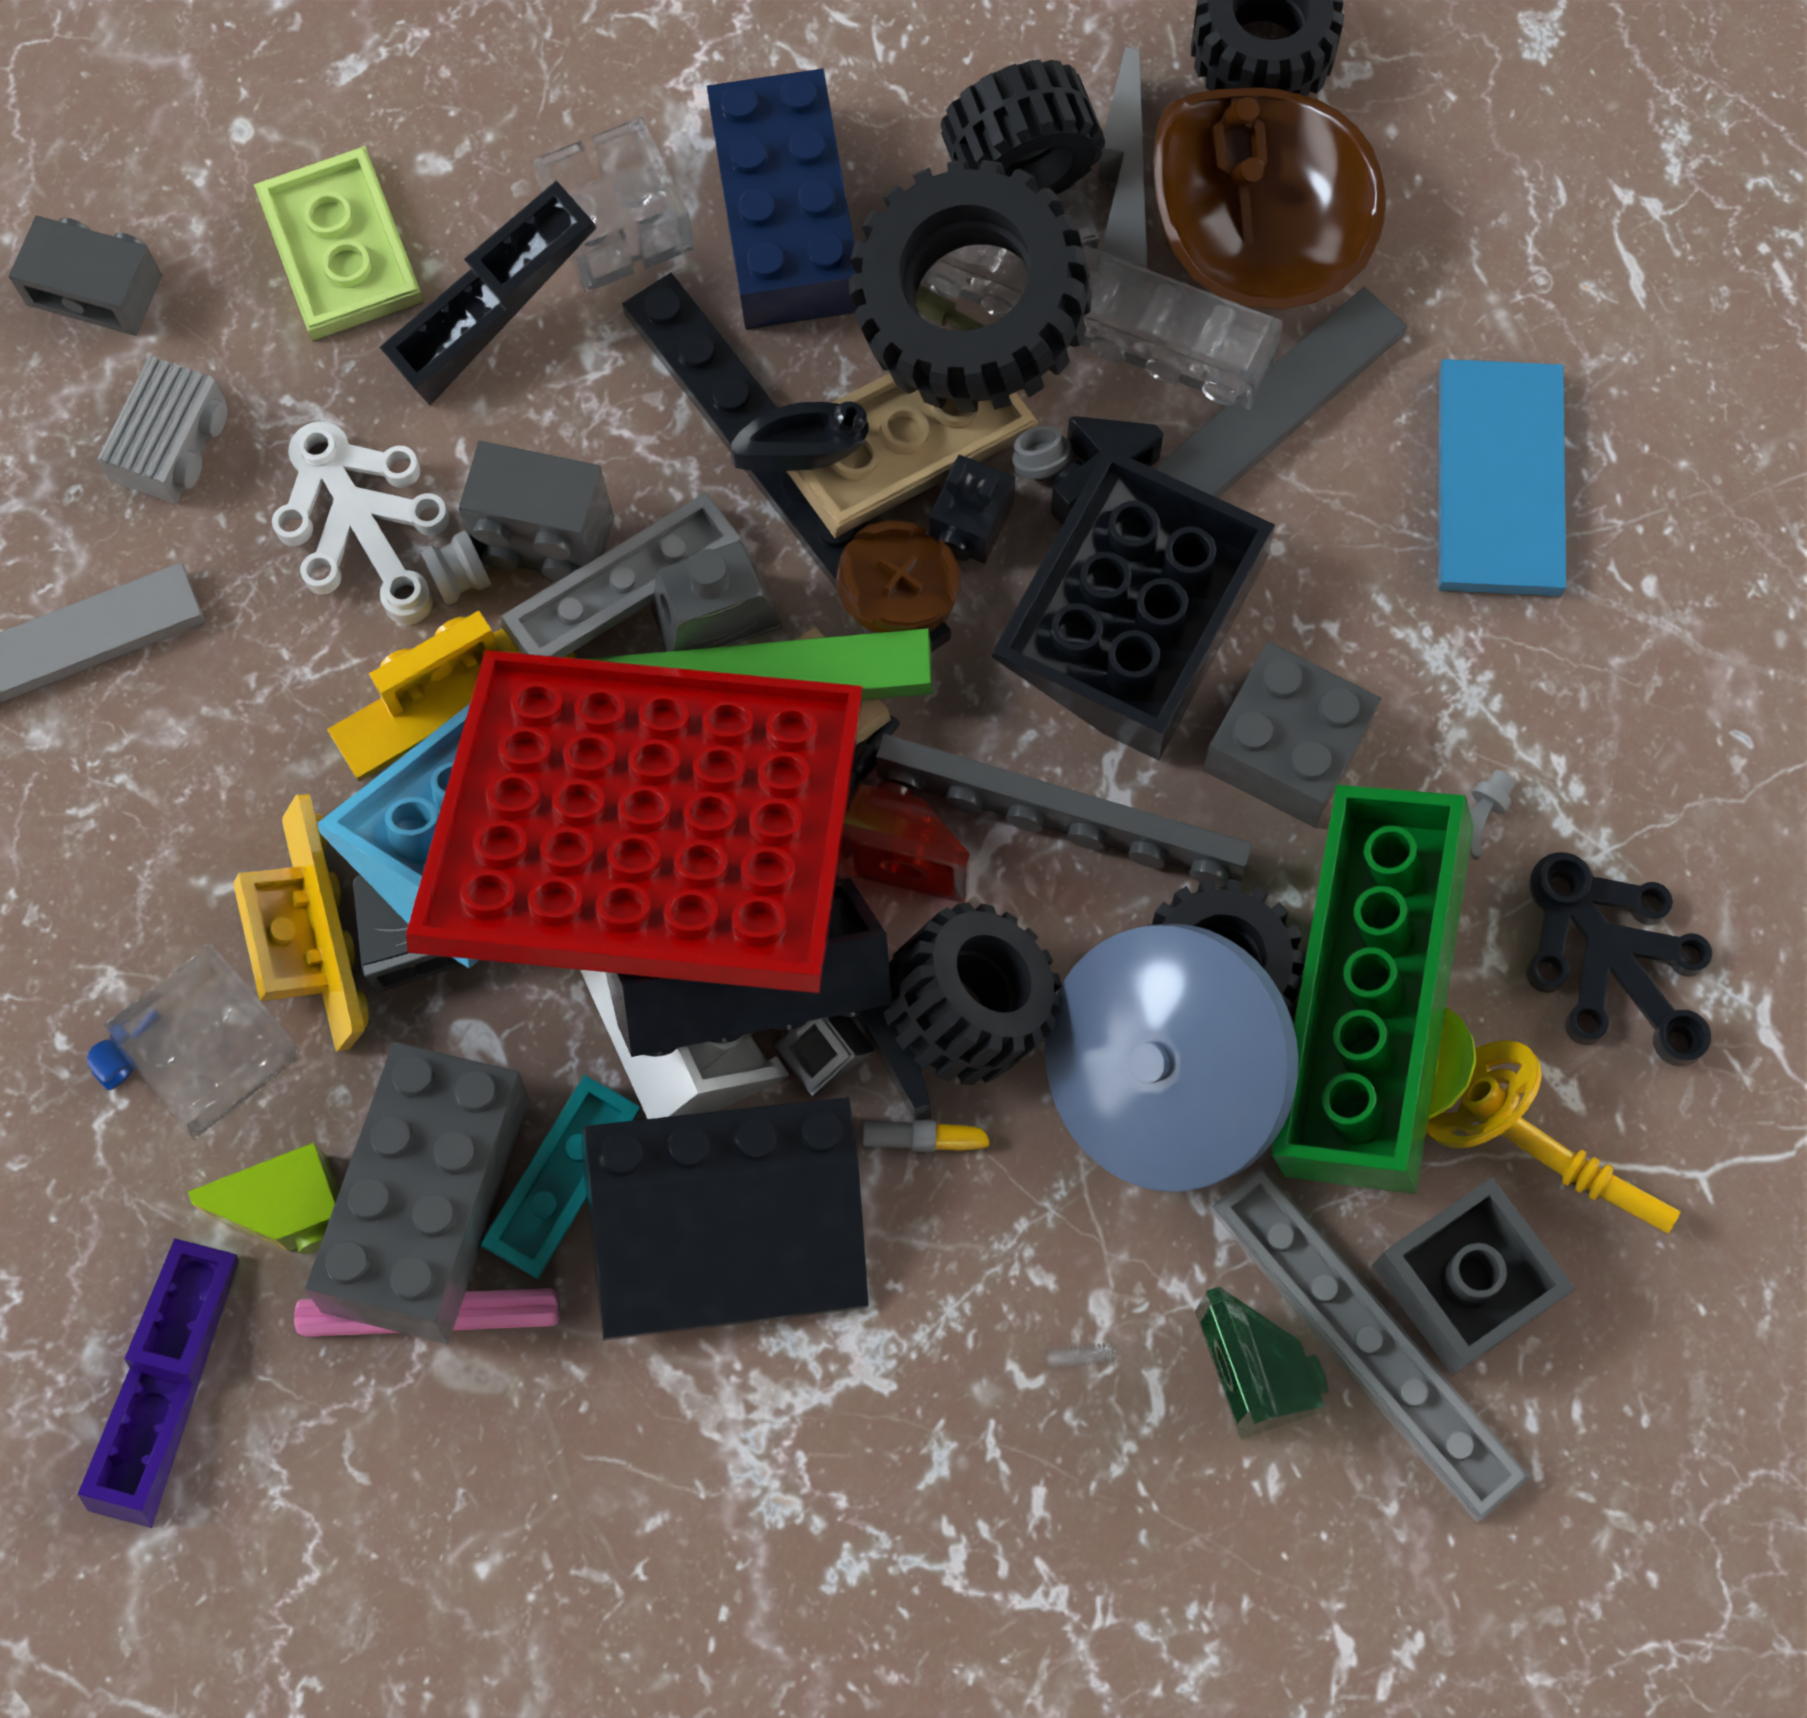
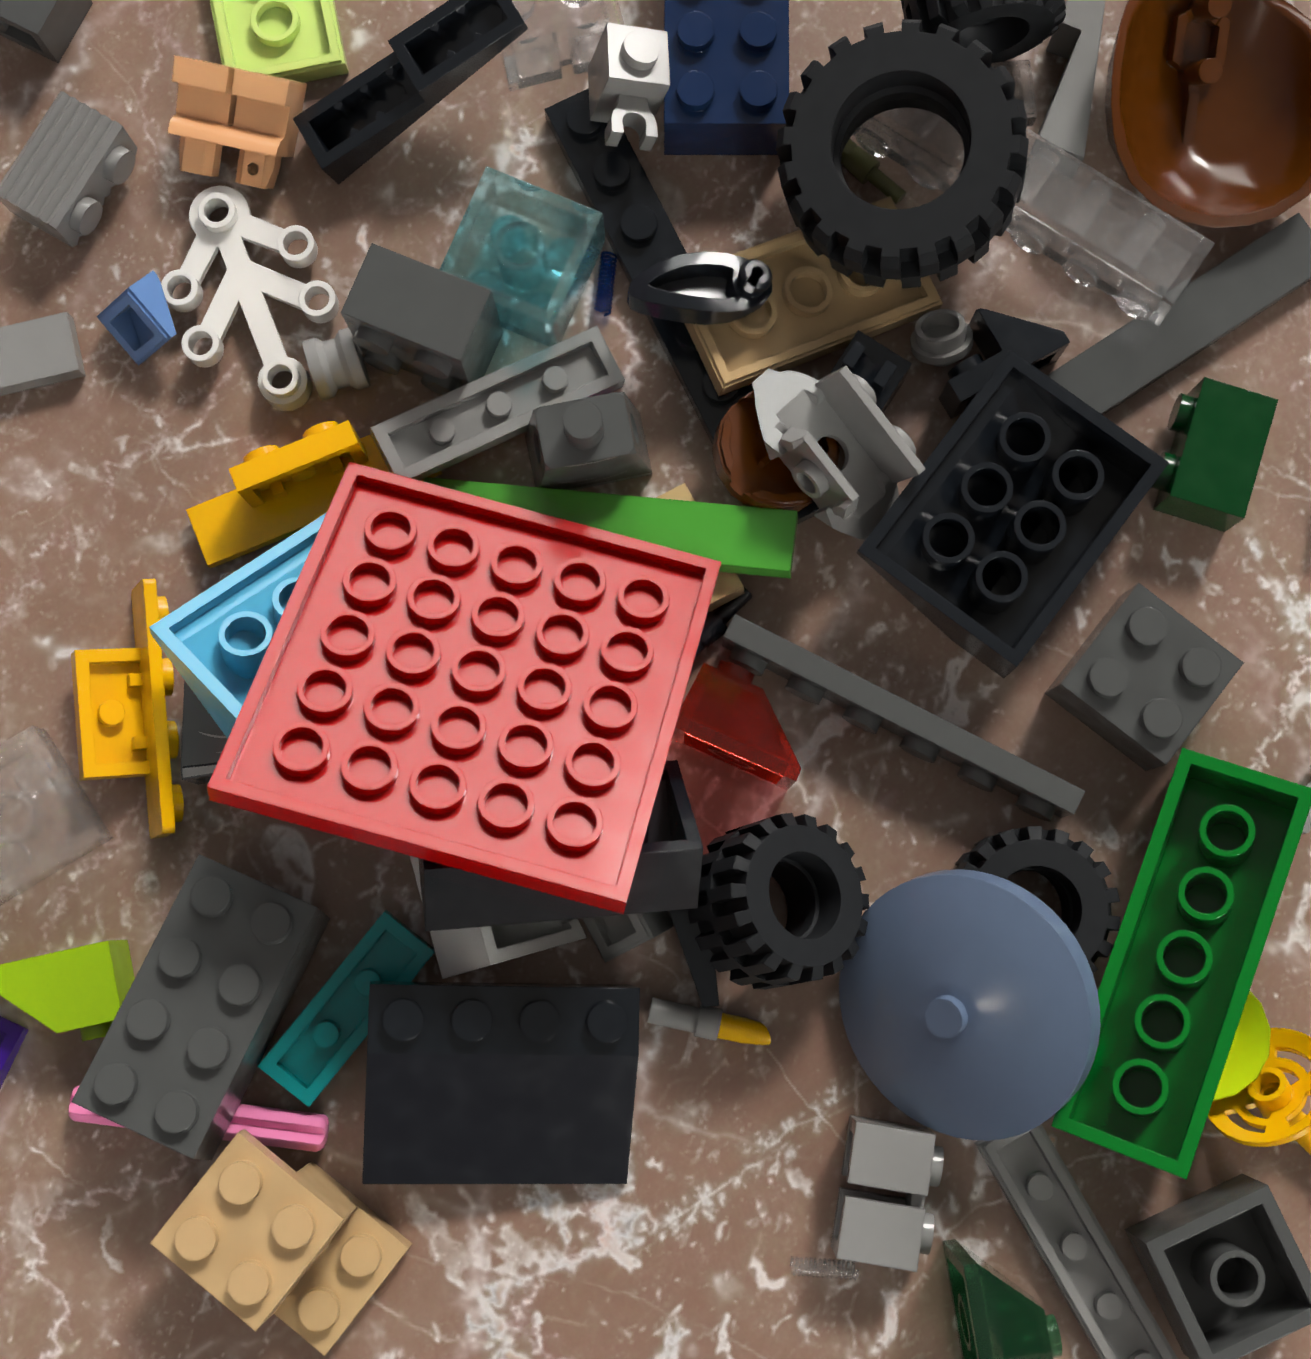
camera: 10 degrees right, 10 degrees up
(255, 557) = (140, 318): none -> medium blue slope
(322, 348) = (238, 111): none -> light nougat hips
(533, 1408) = (281, 1242): none -> tan bracket
(633, 428) = (528, 251): none -> clear light blue brick
(700, 263) = (629, 81): none -> light grey brick
(713, 461) = (603, 290): none -> clear blue leg
(955, 525) = (842, 406): none -> light grey piece
(1128, 1297) = (882, 1226): none -> light grey piece
(1322, 518) = (1214, 453): none -> dark green piece

